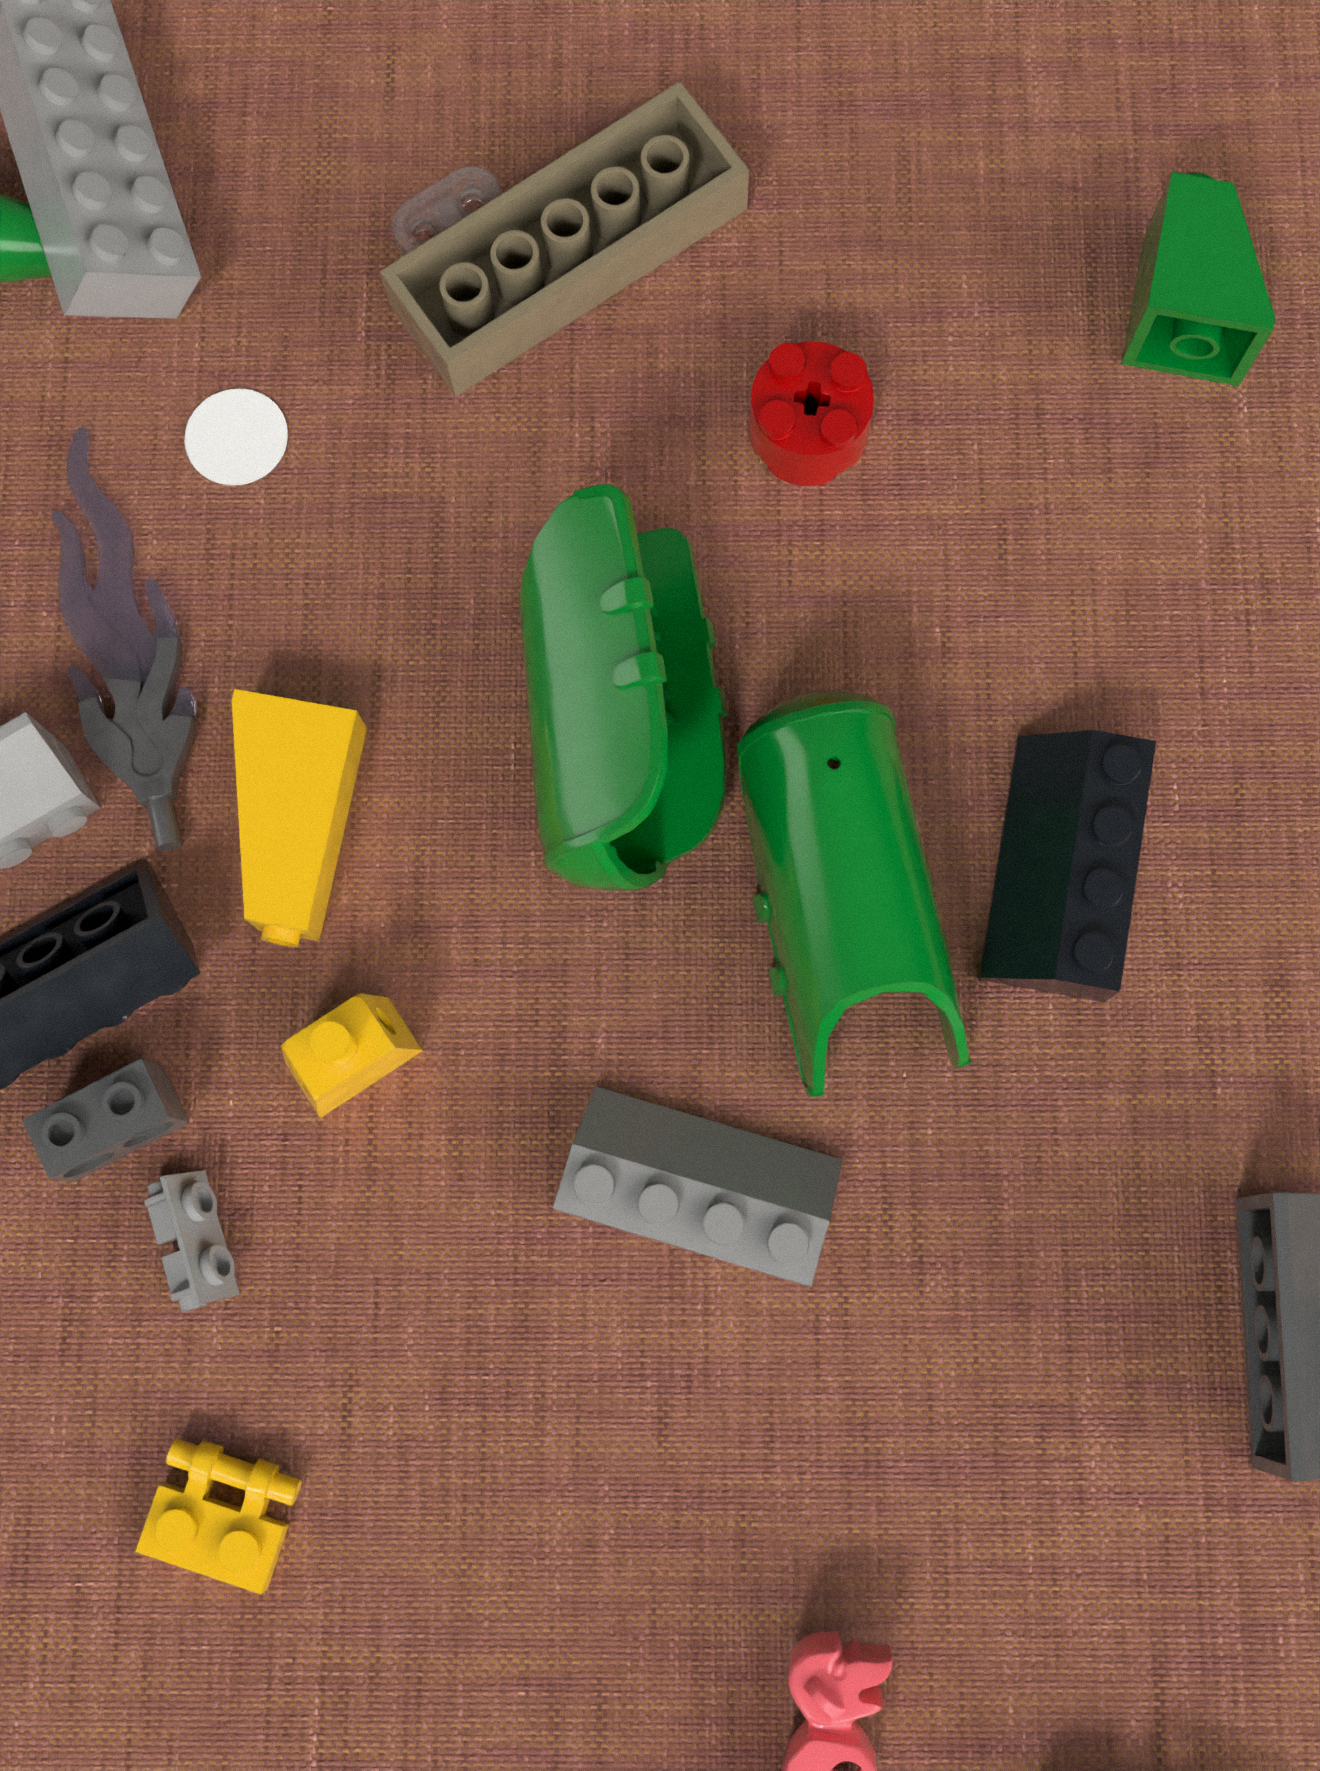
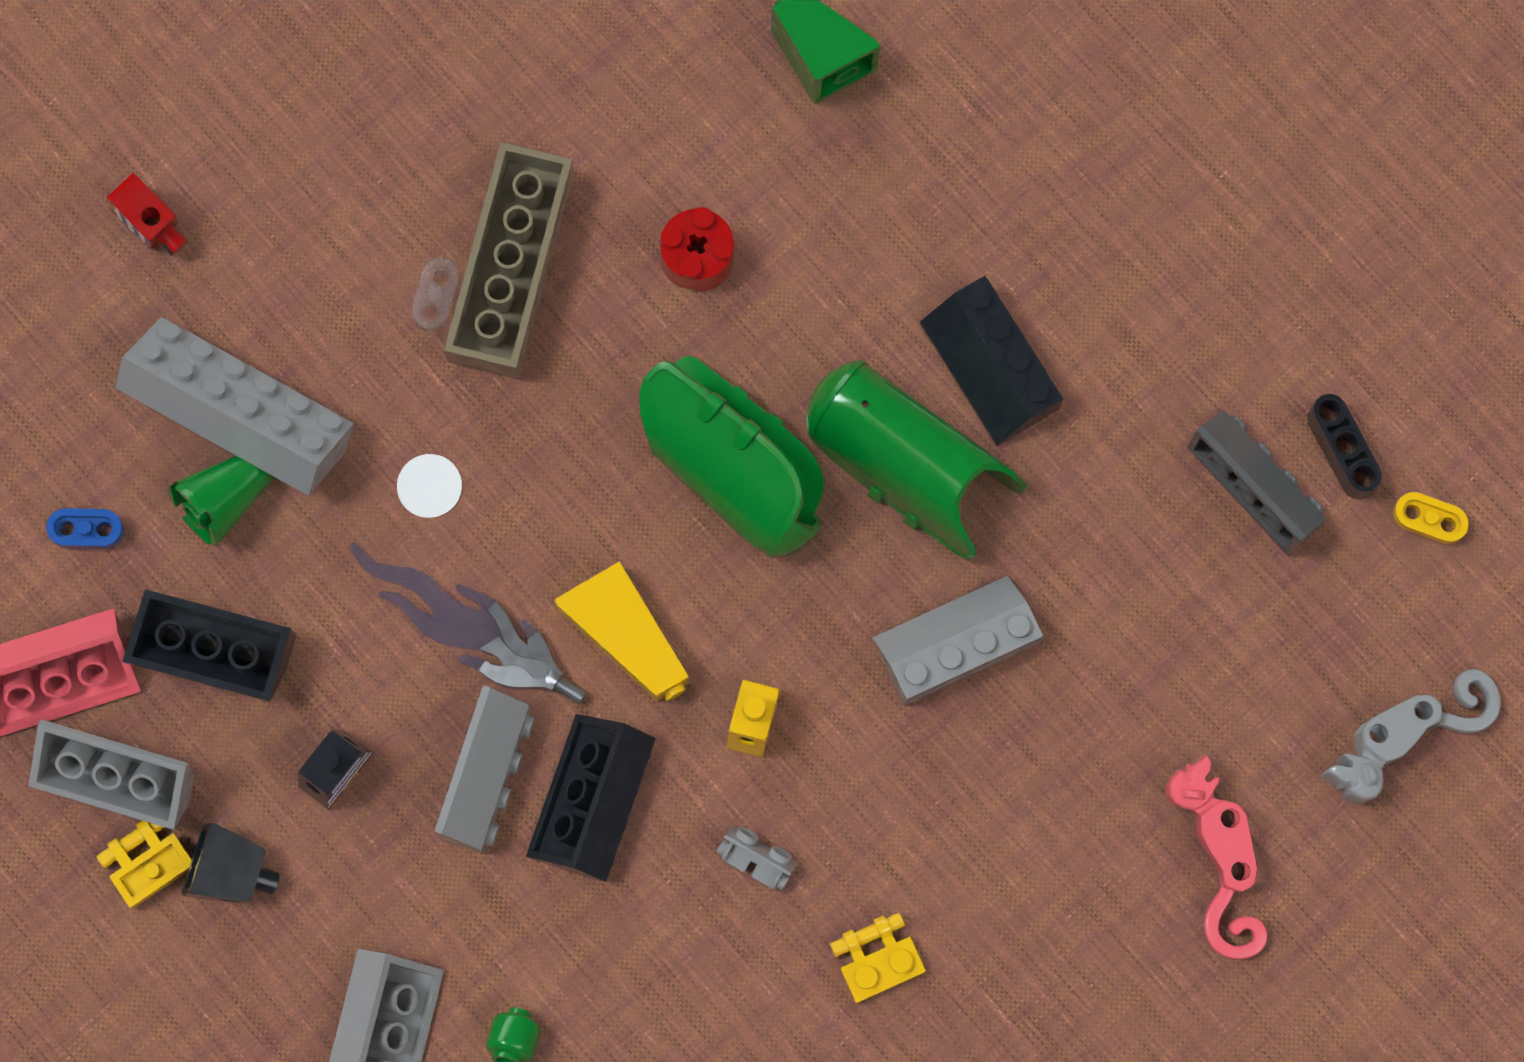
camera: 50 degrees left, 0 degrees up
(105, 1121) = (674, 837): dark grey brick -> none

